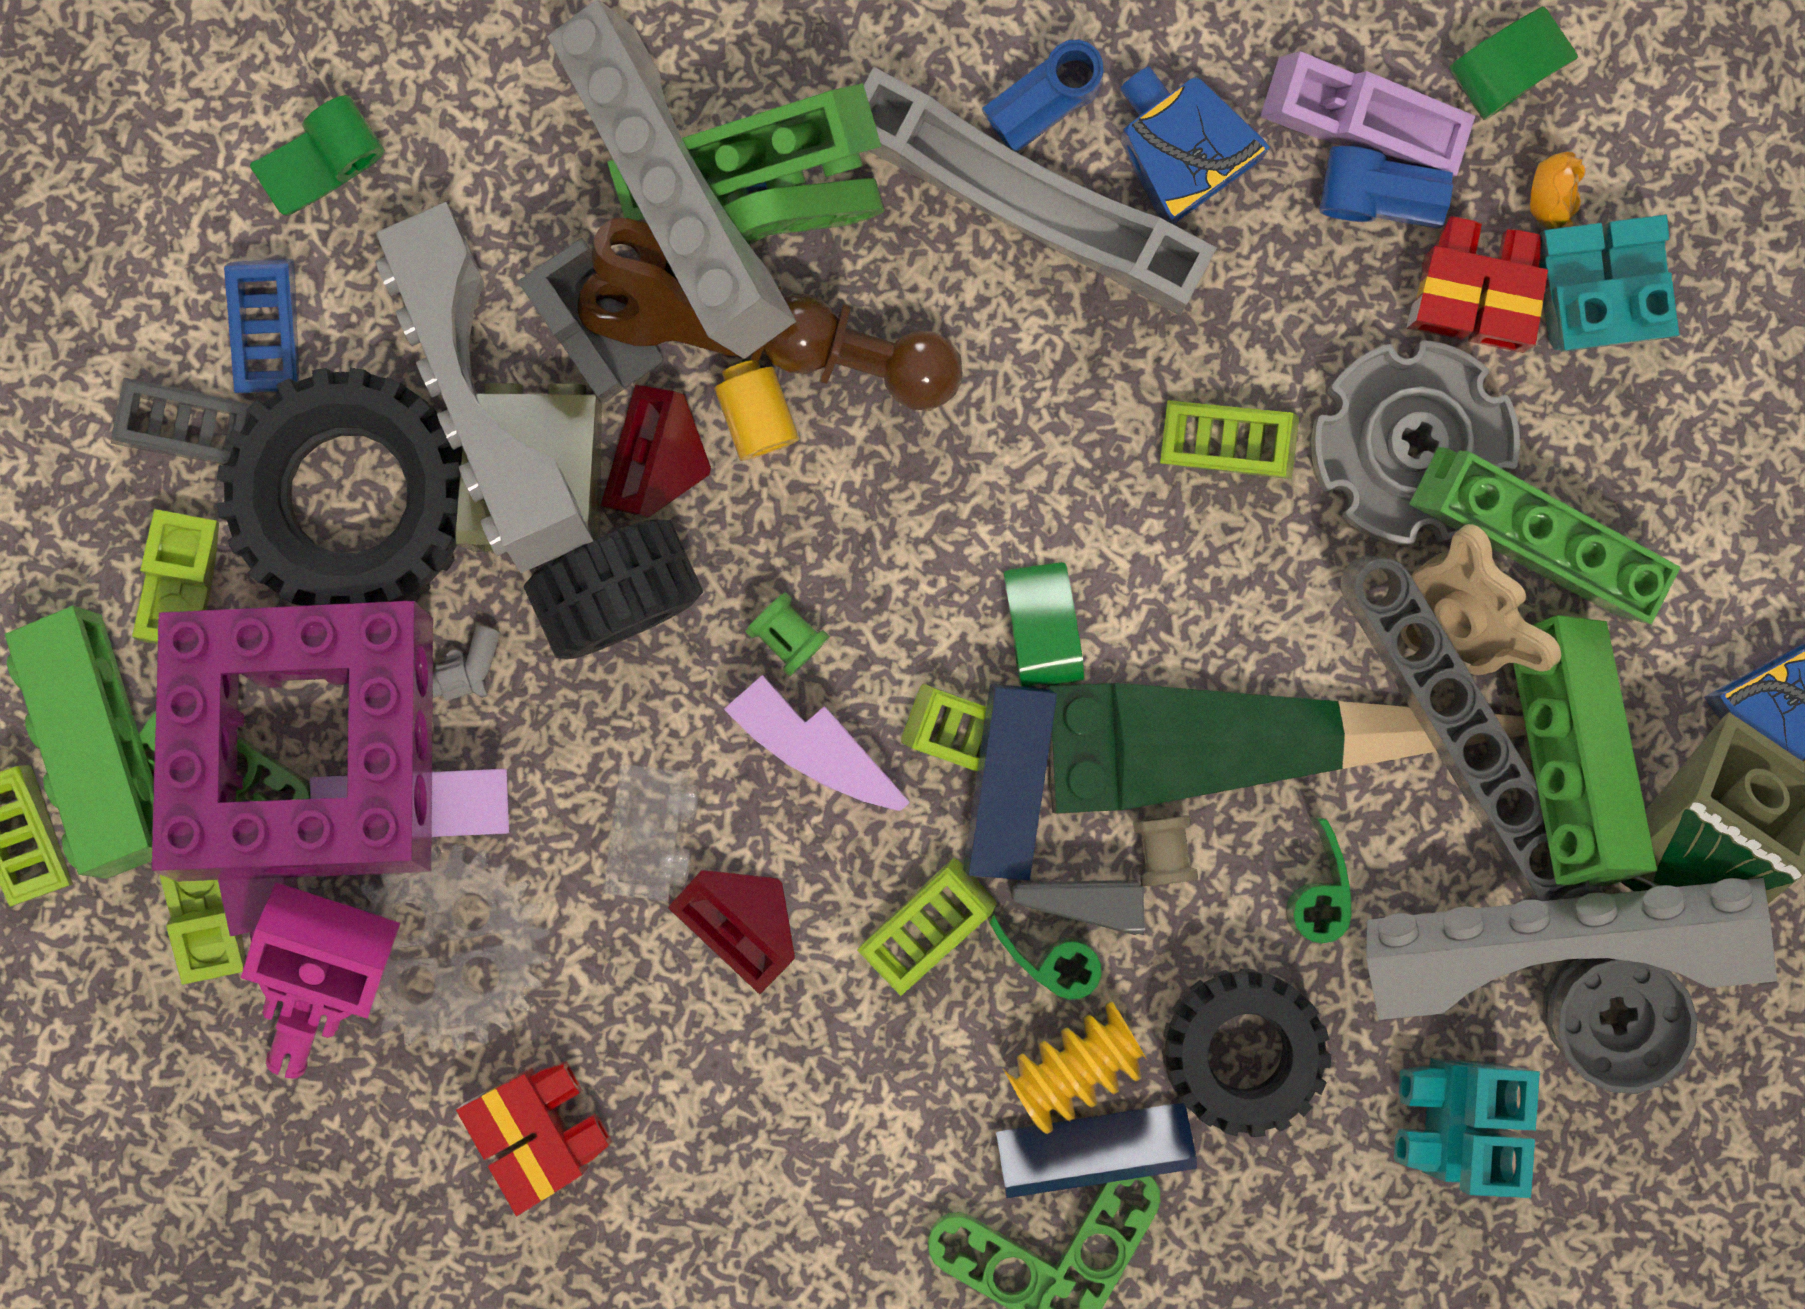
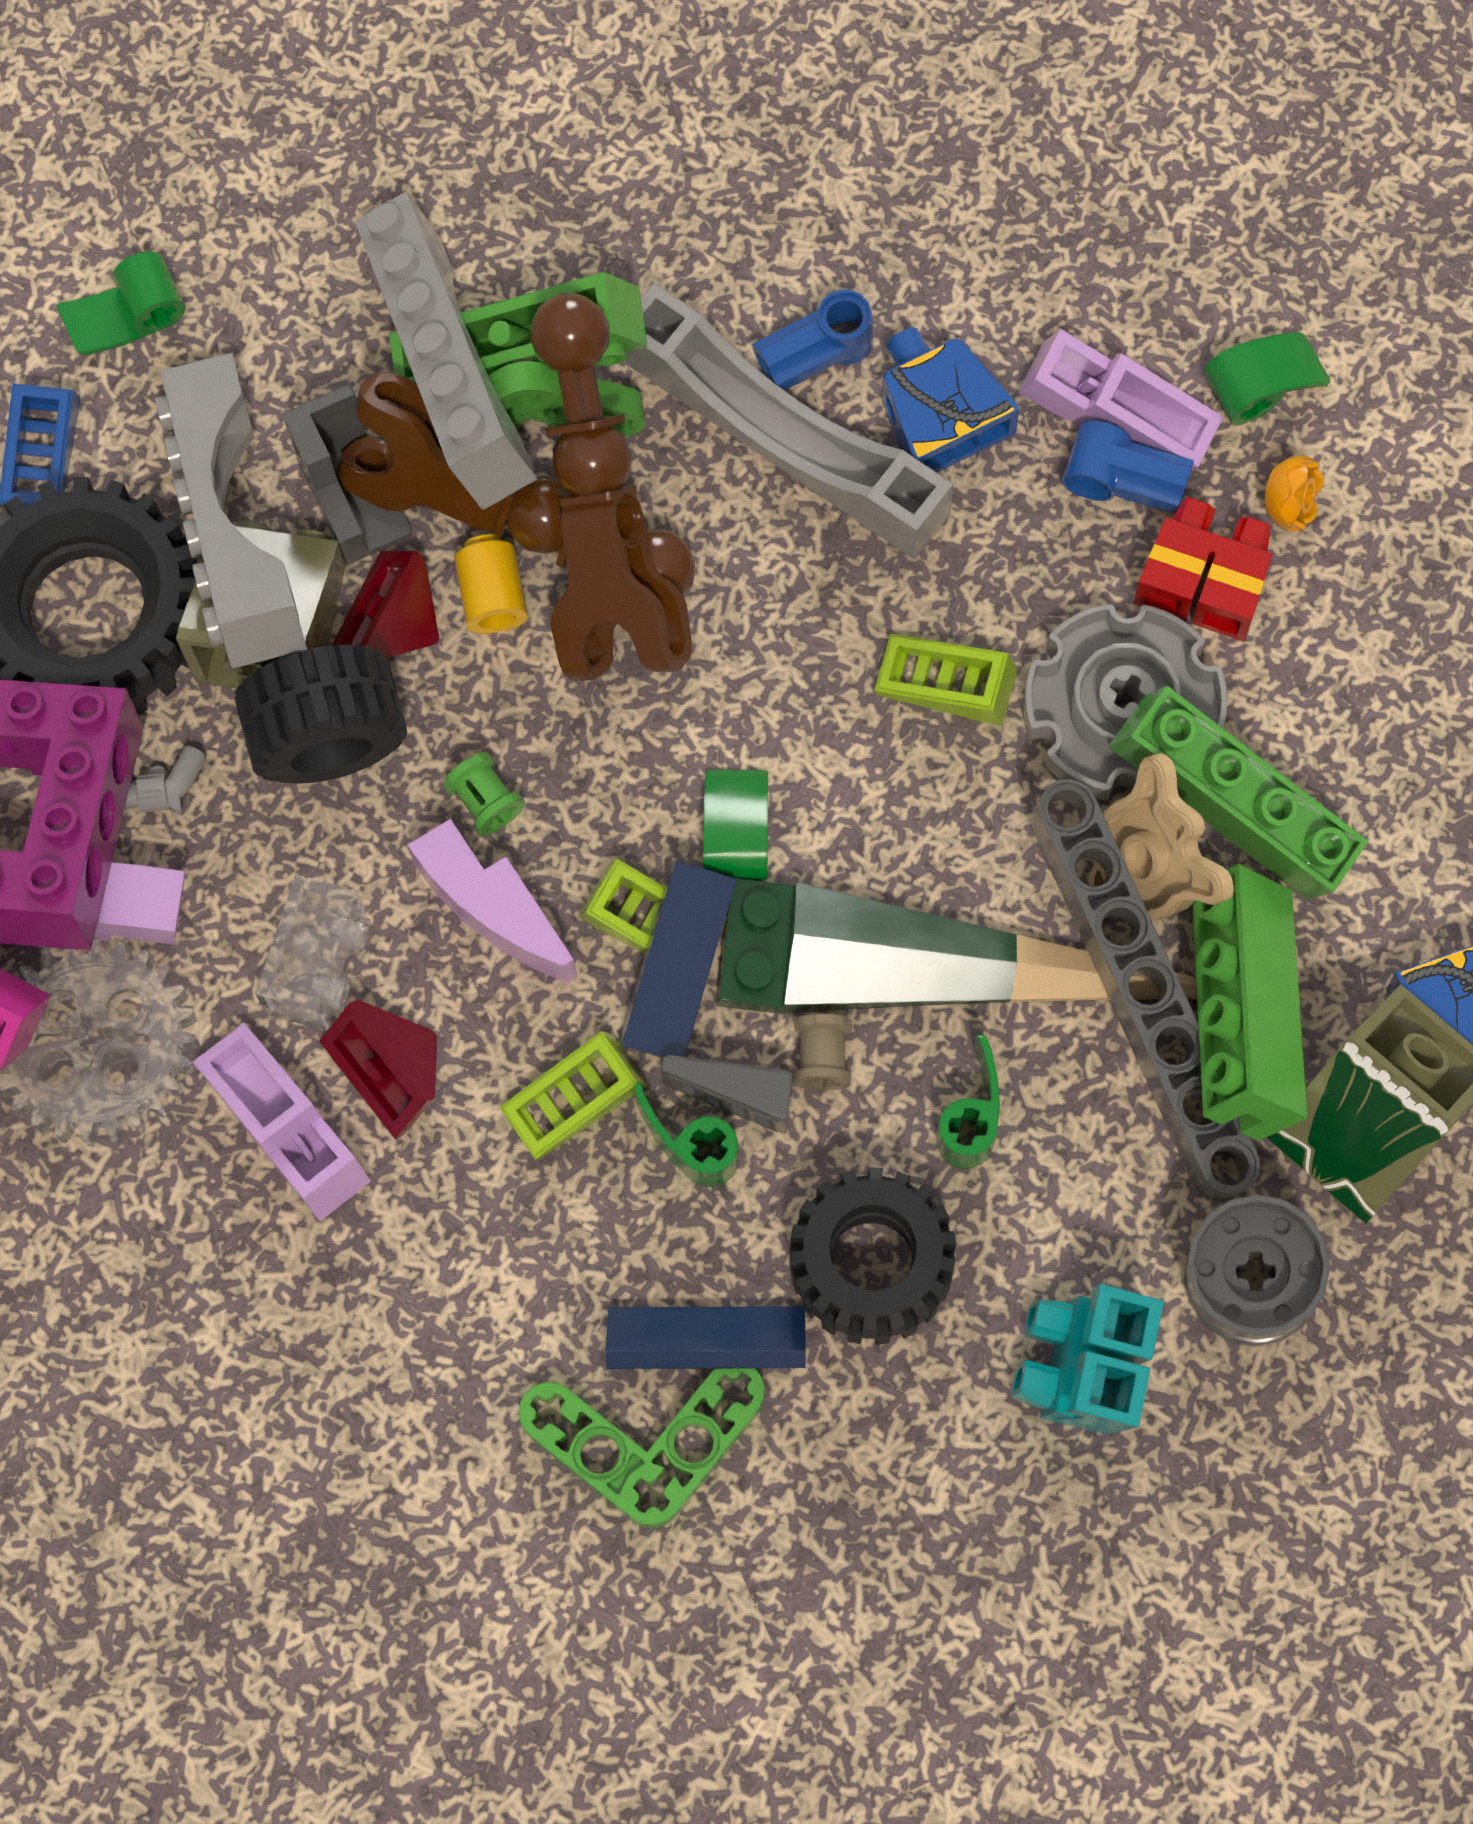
camera: 10 degrees right, 15 degrees down
(526, 1107) = (132, 1237): red hips -> none
(646, 998) = (282, 1121): none -> lavender slope
(866, 345) = (601, 520): none -> reddish brown piece
(1077, 1068) = (699, 1248): yellow piece -> none
(1608, 284) = (1334, 604): teal hips -> none
(1701, 931) = (1348, 1181): light grey arch -> none

